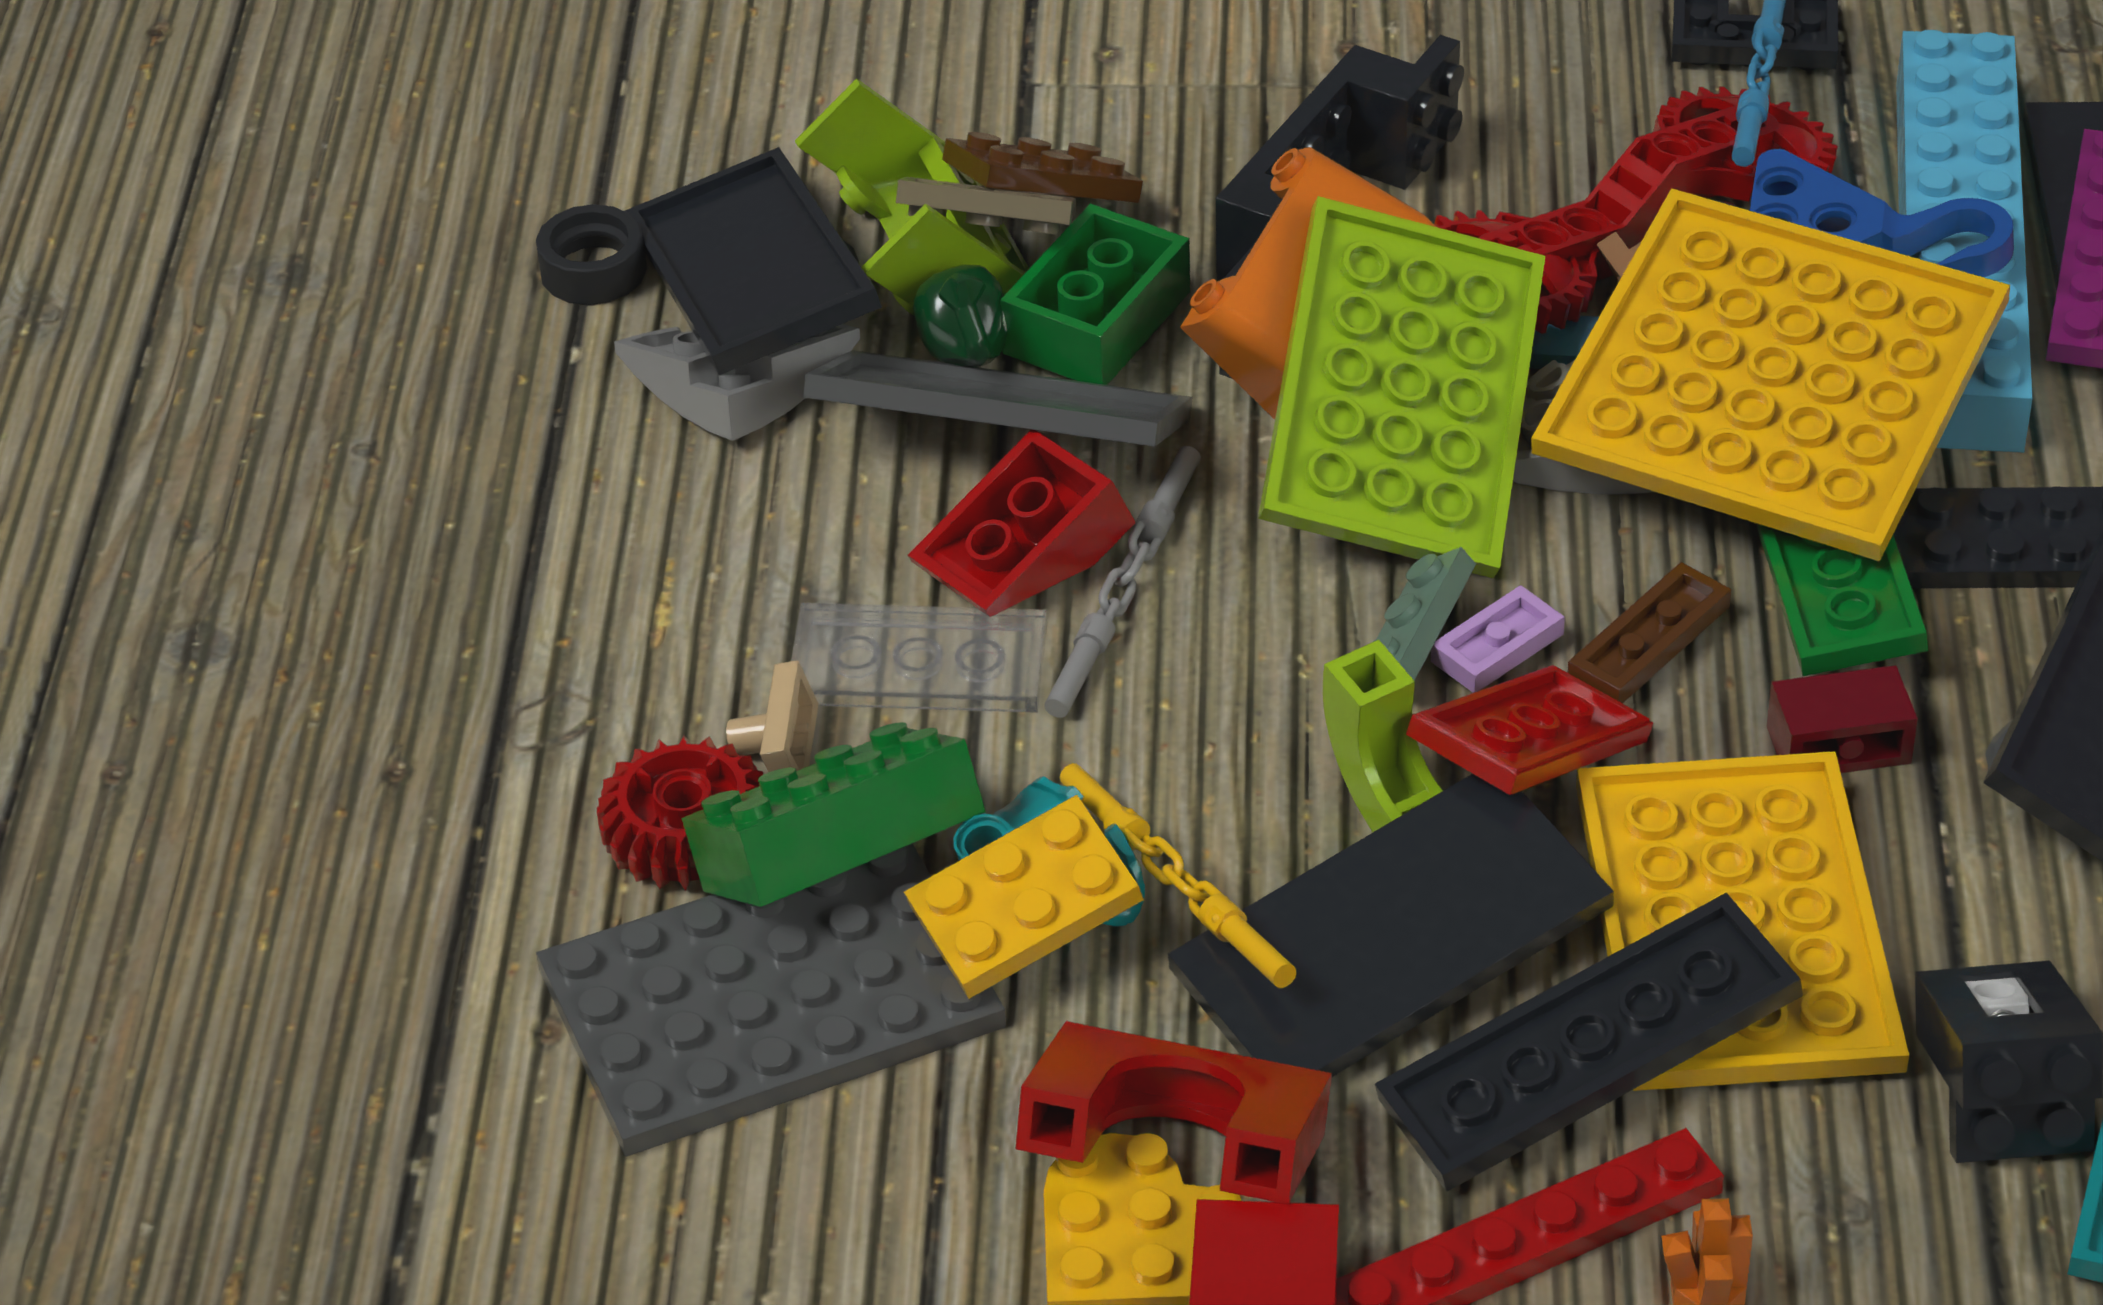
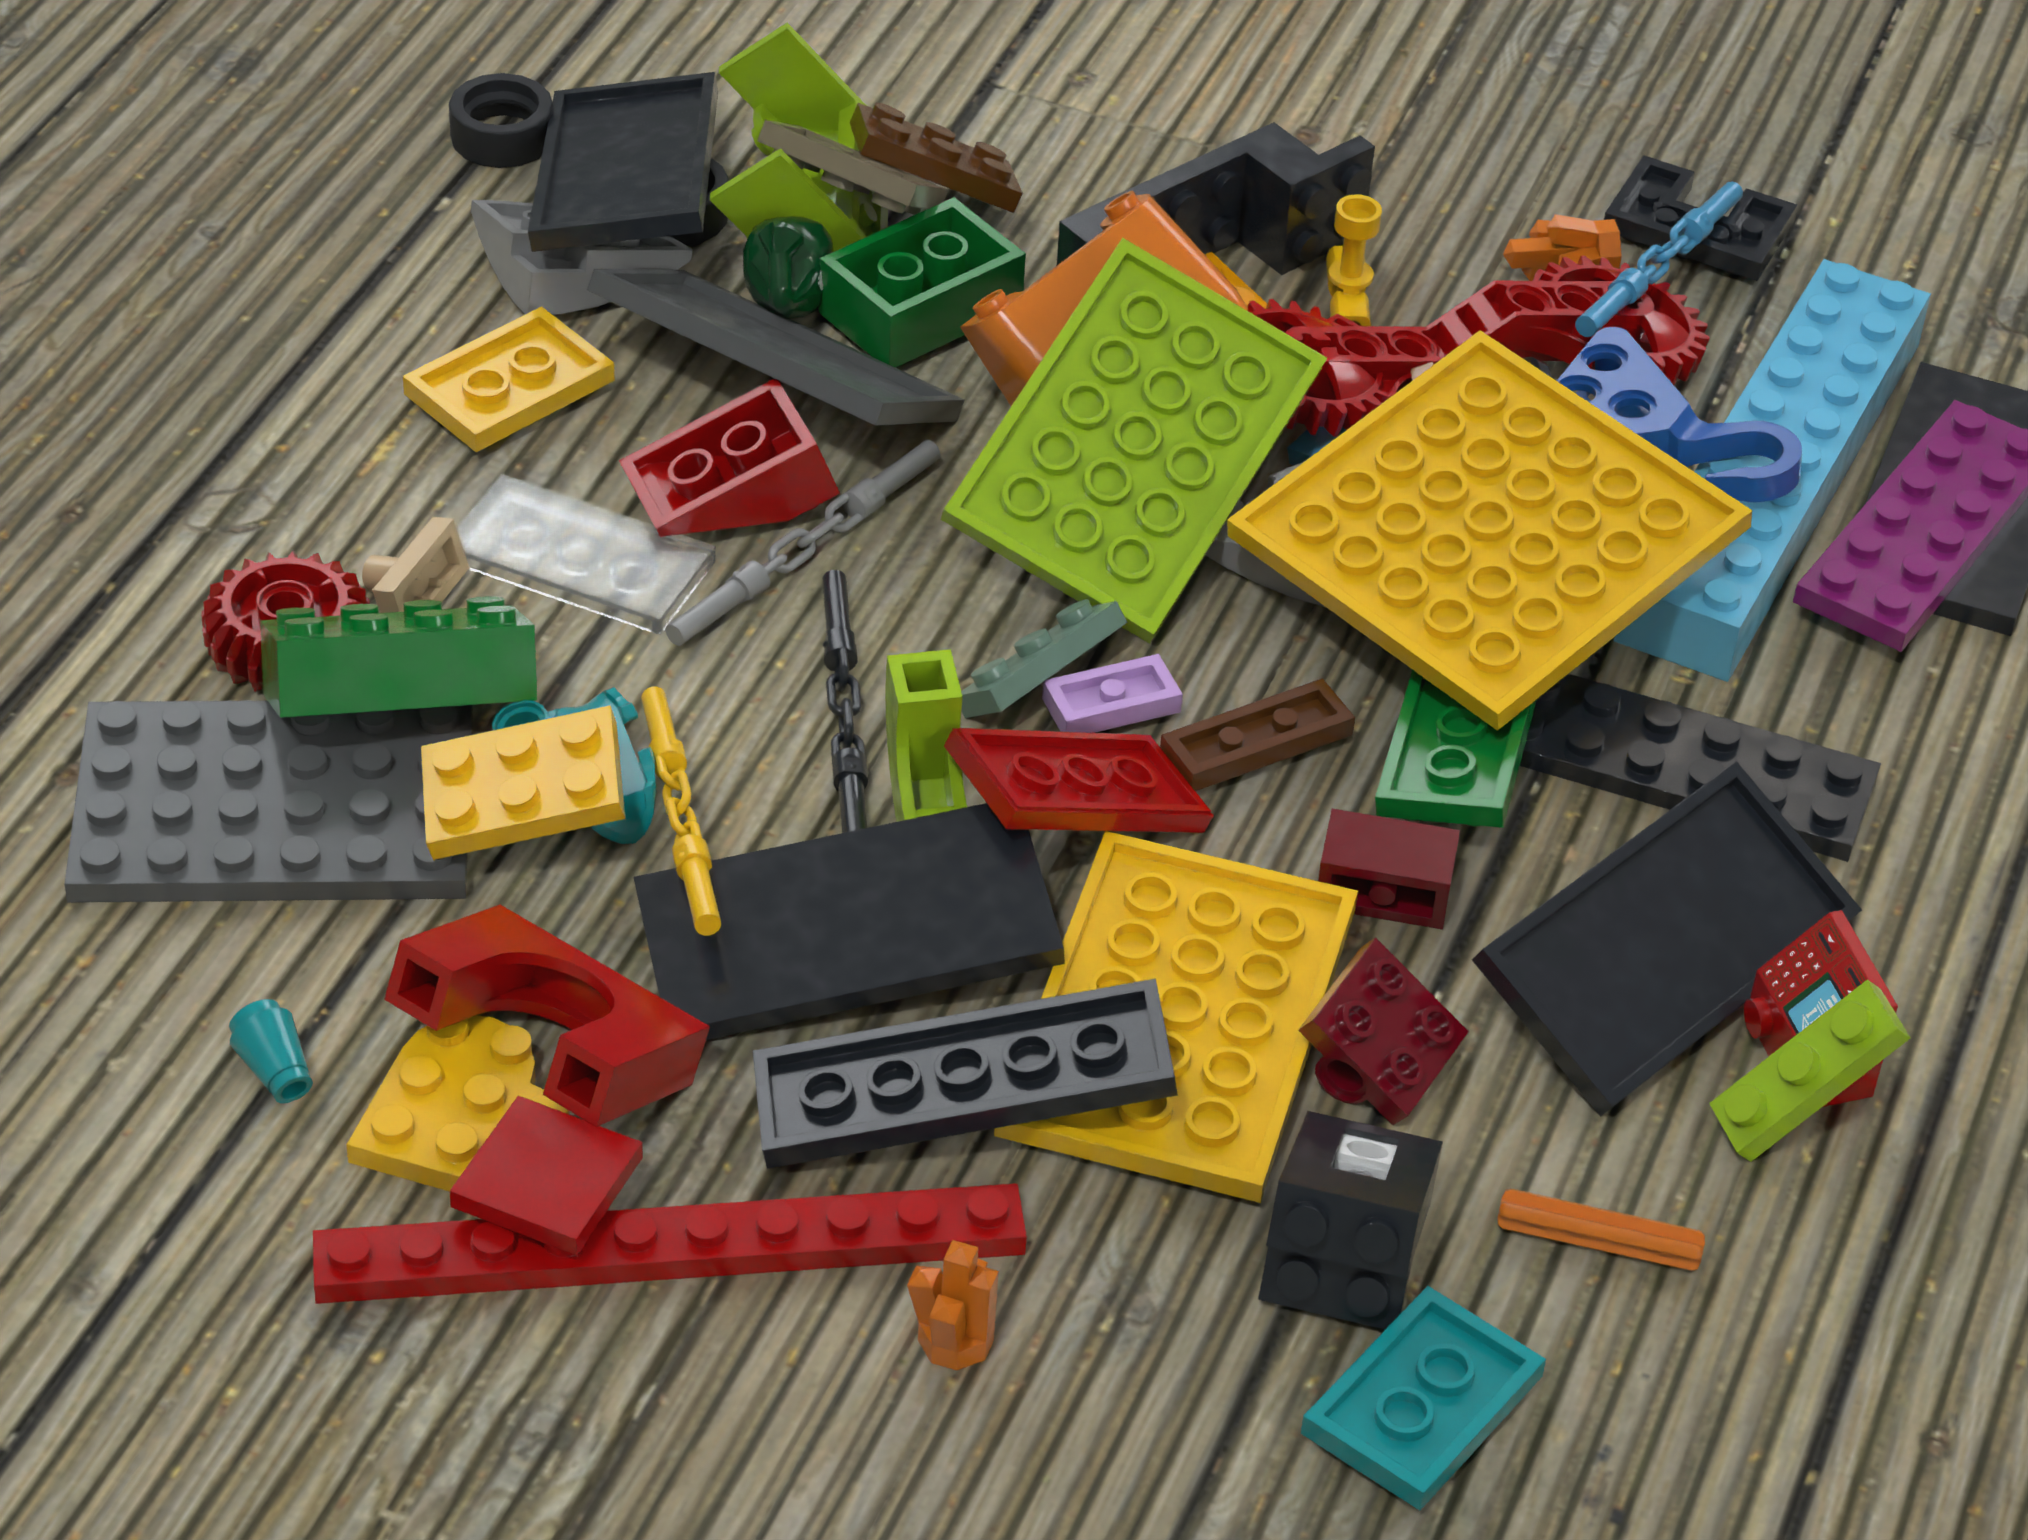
camera: 15 degrees right, 0 degrees up
(751, 507) = (508, 378): none -> yellow plate
(921, 1234) = (271, 1048): none -> teal cone
(1221, 679) = (841, 656): none -> black piece
(1474, 165) = (1347, 271): none -> yellow bar
(1652, 82) = (1564, 238): none -> orange rock
(1930, 880) = (1380, 1034): none -> dark red plate

